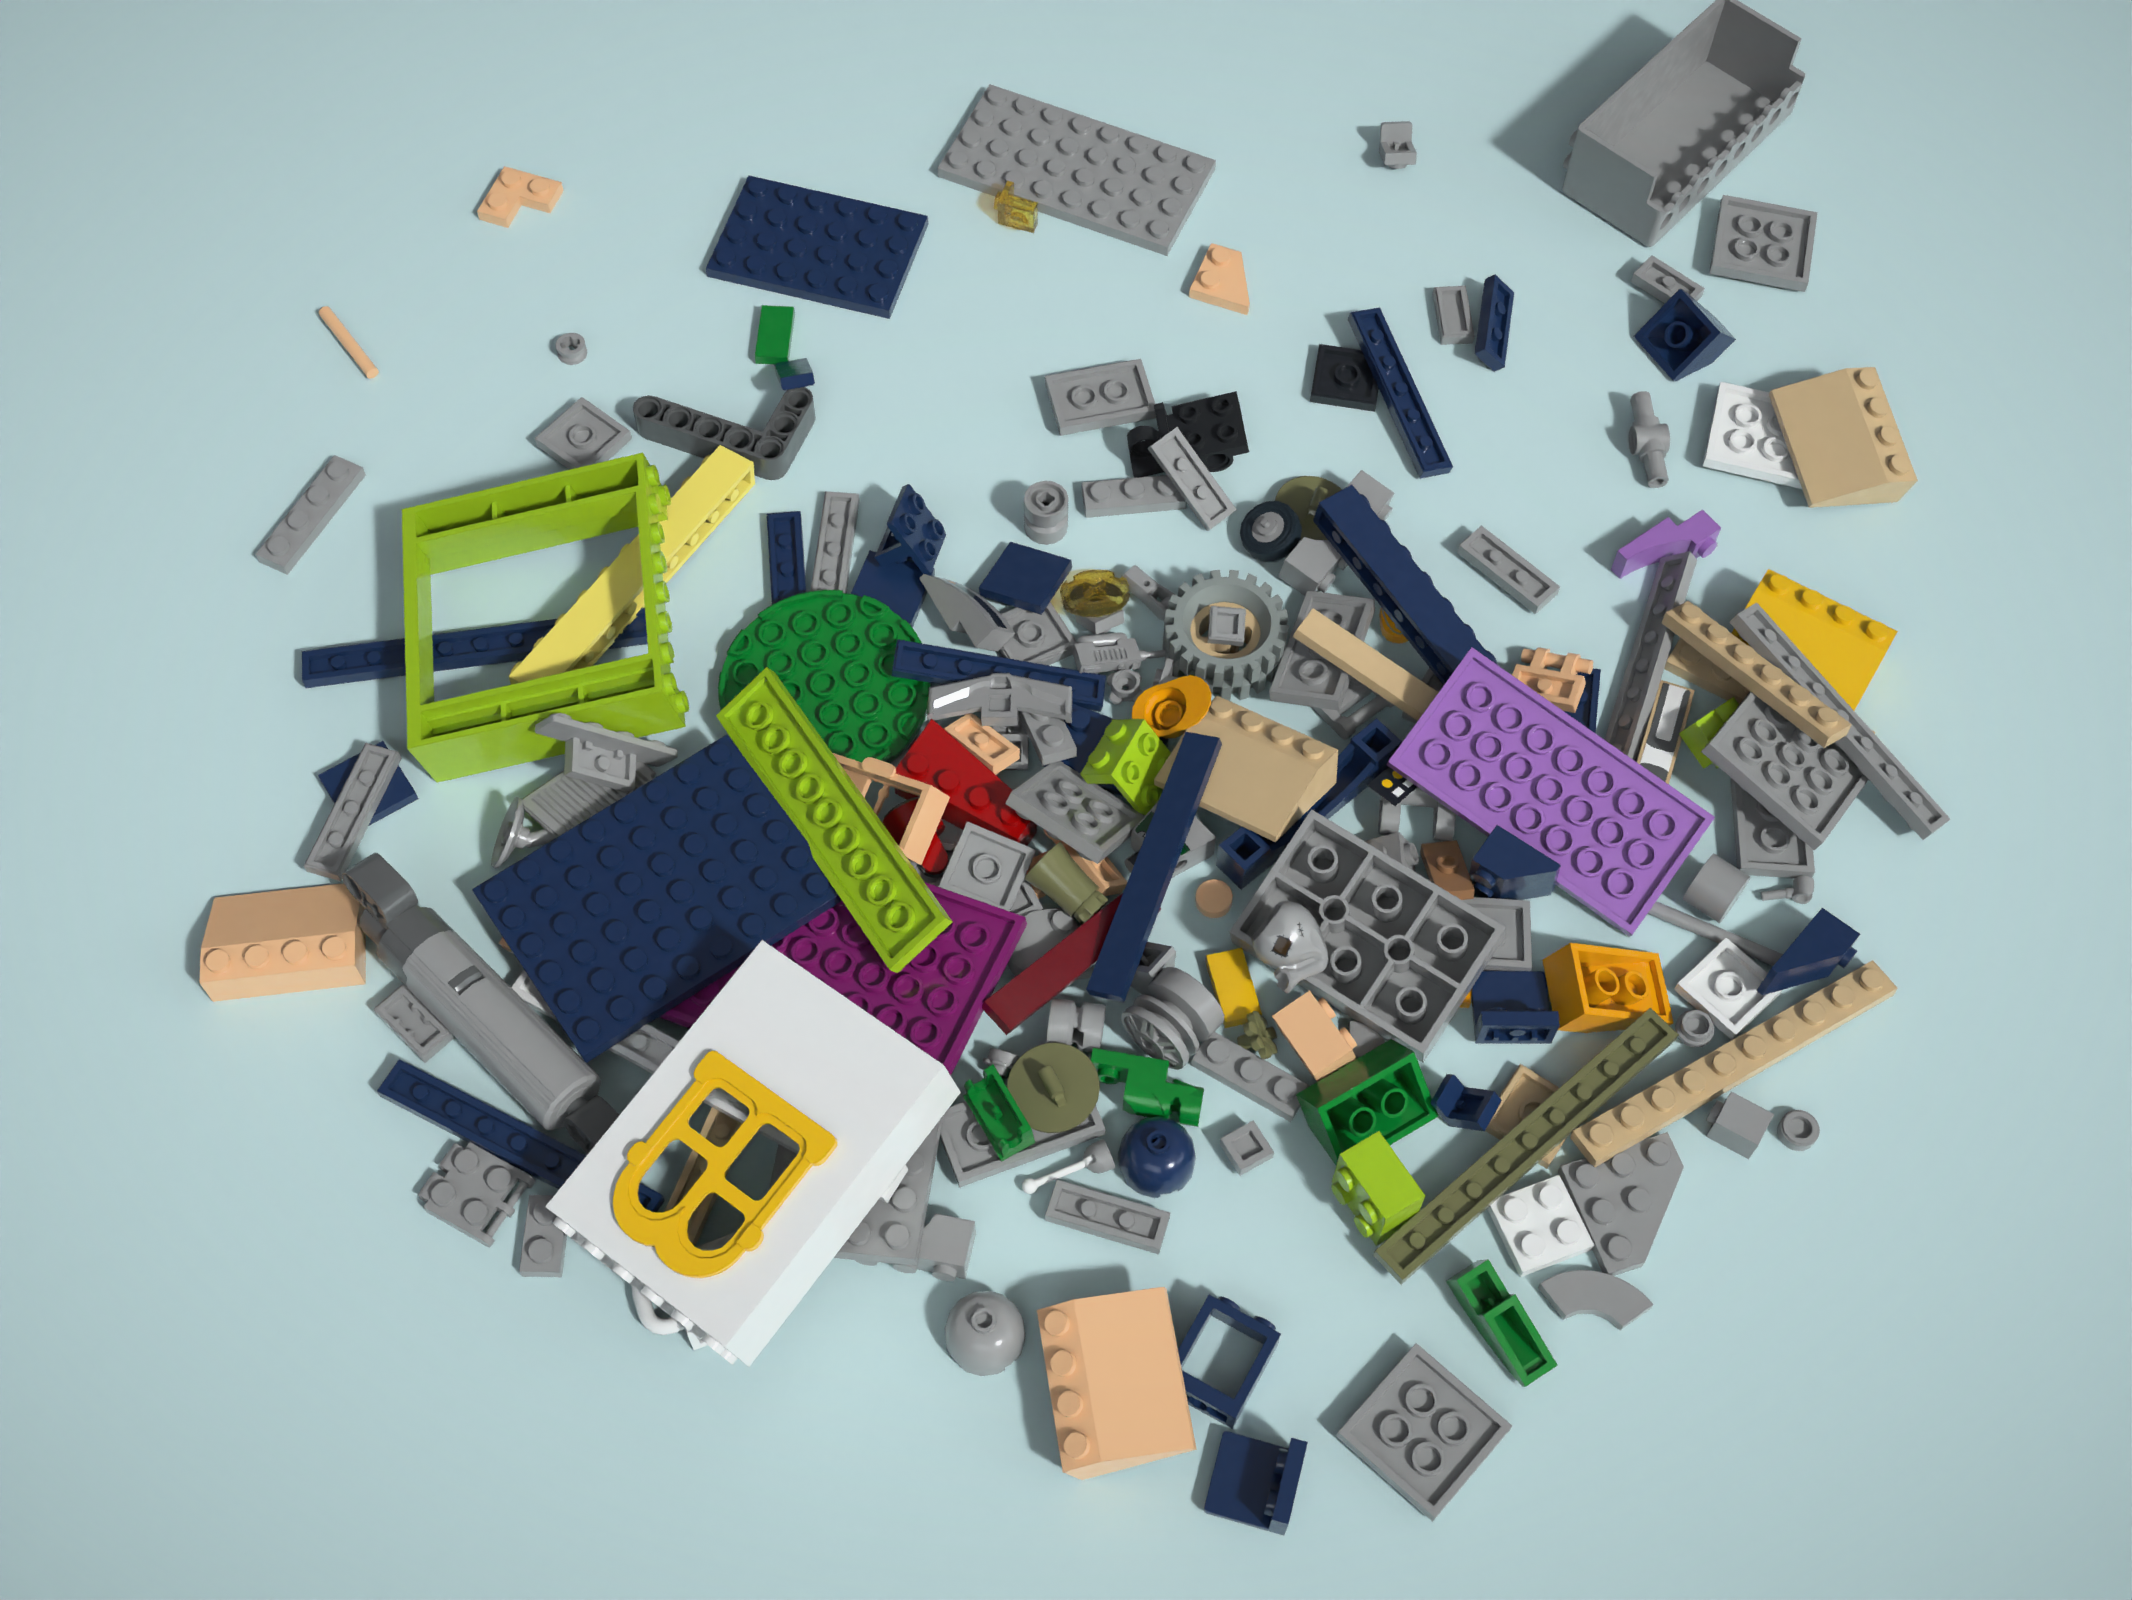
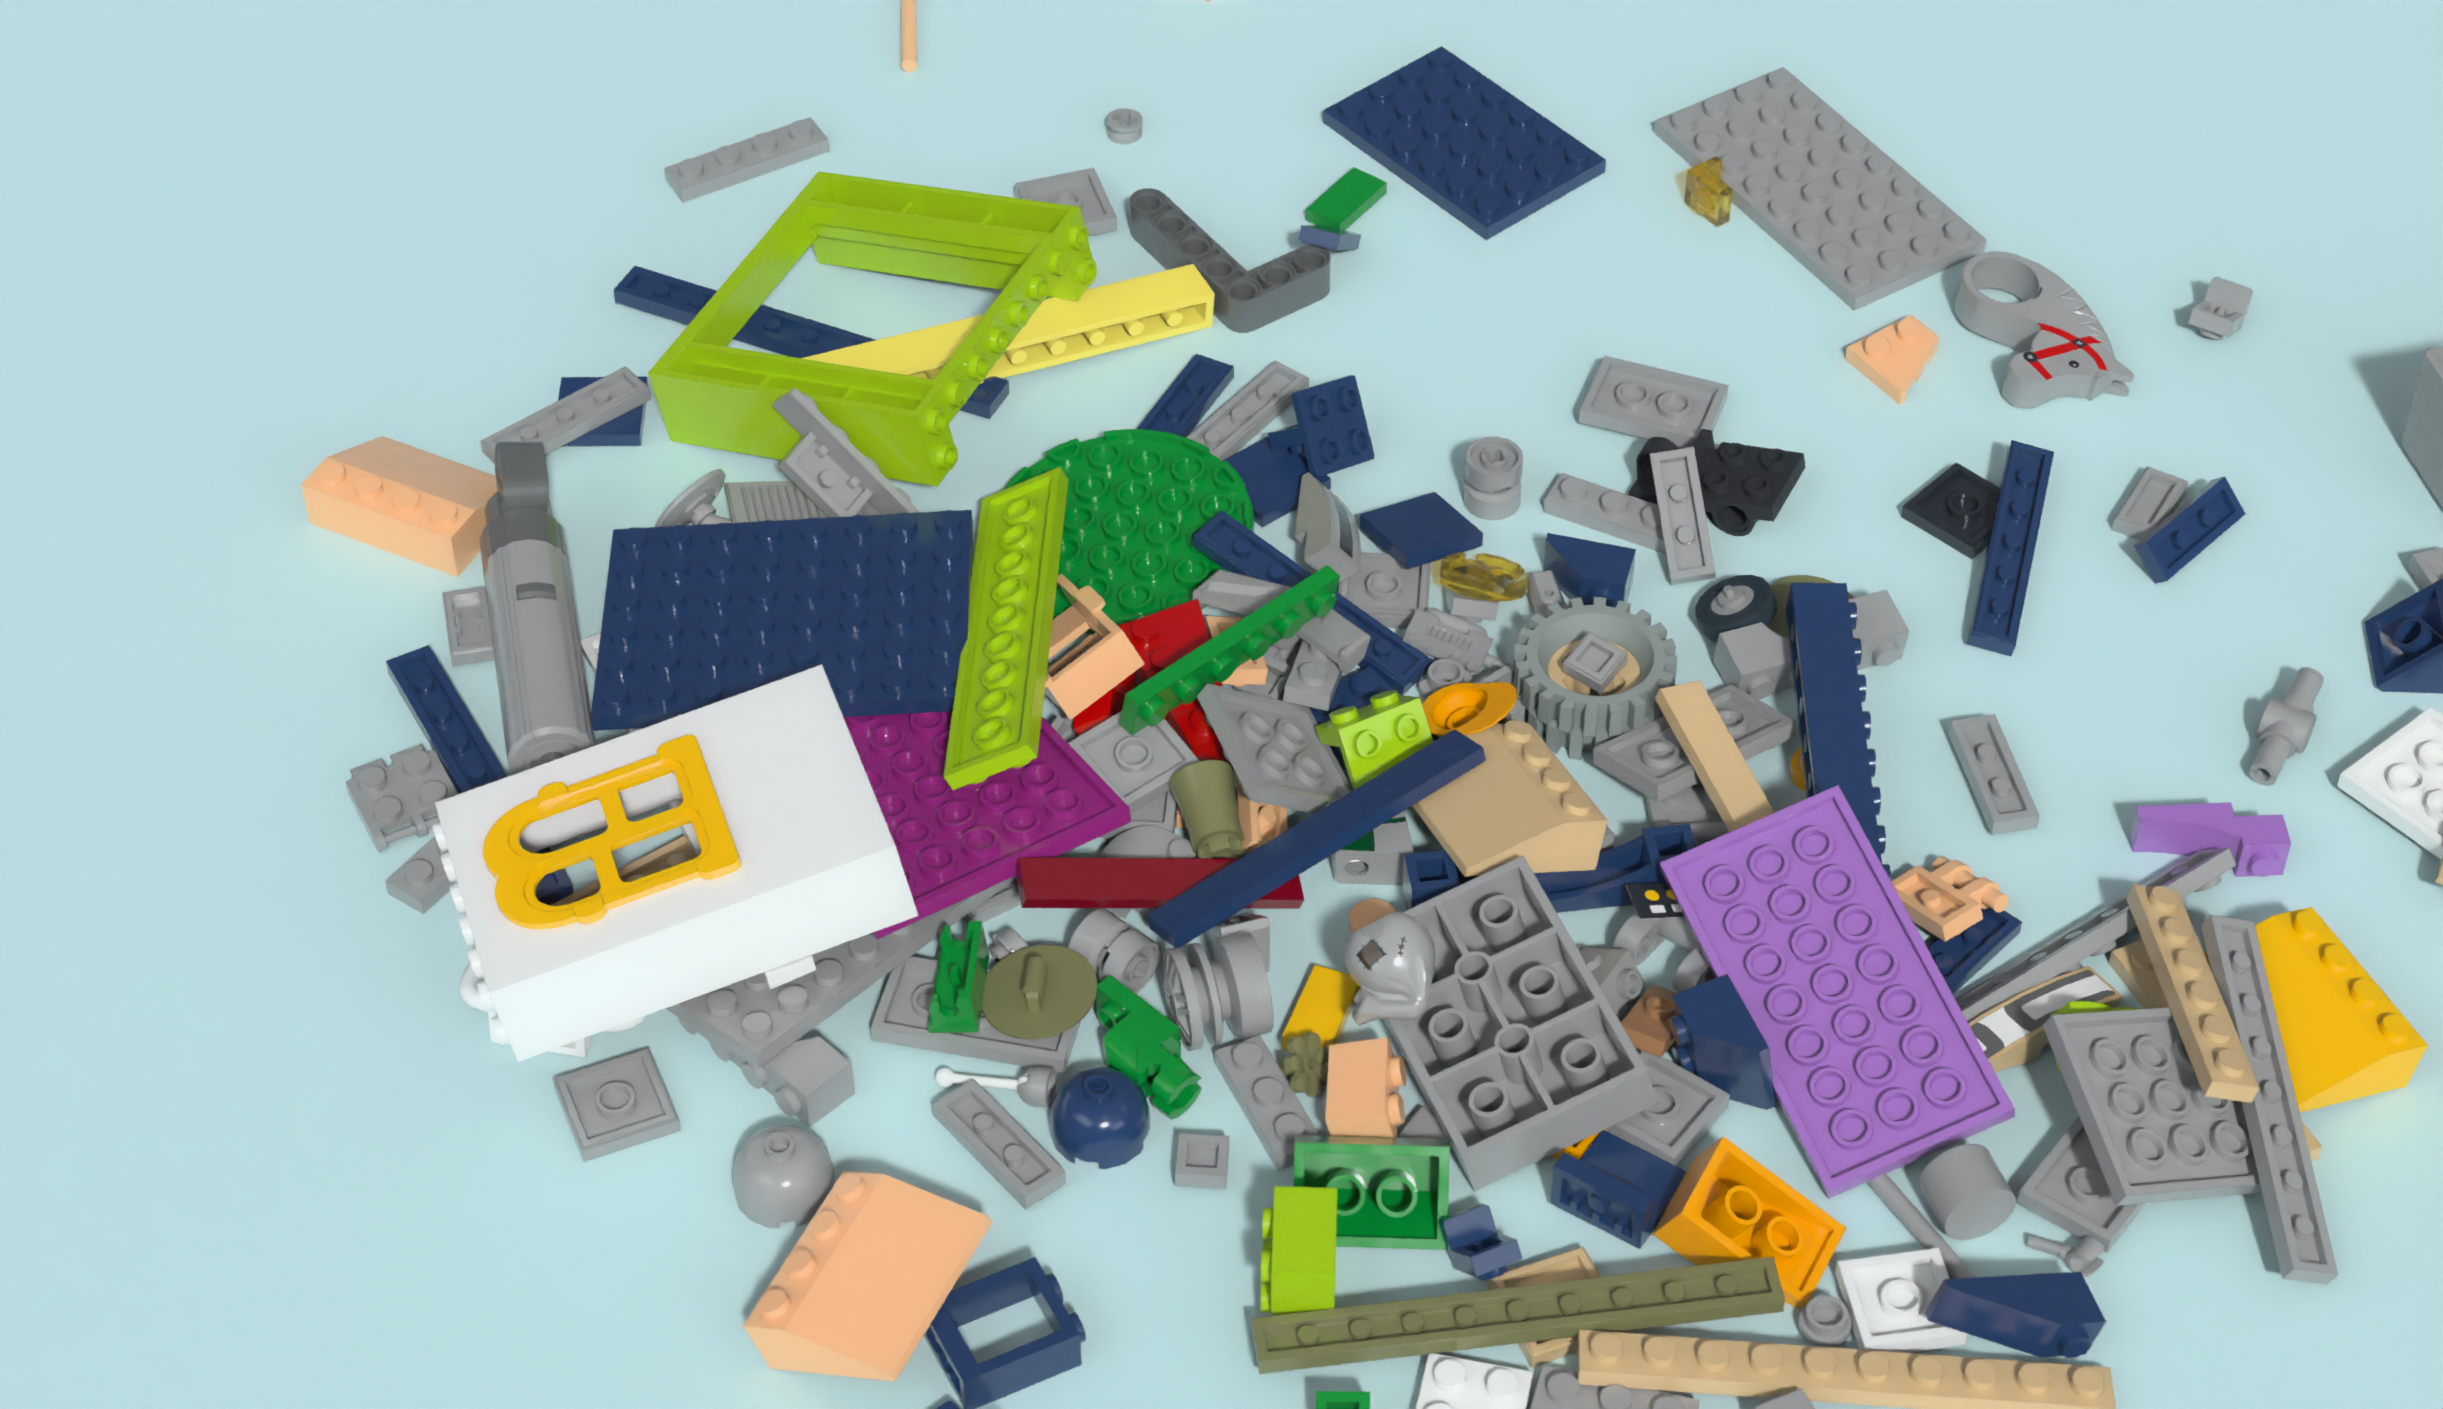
camera: 35 degrees right, 15 degrees down
(823, 1346) = (616, 1104): none -> light grey tile
(1001, 767) = (1228, 650): none -> green plate
(1160, 553) = (1590, 568): none -> dark blue slope
(1306, 210) = (2053, 328): none -> light grey animal

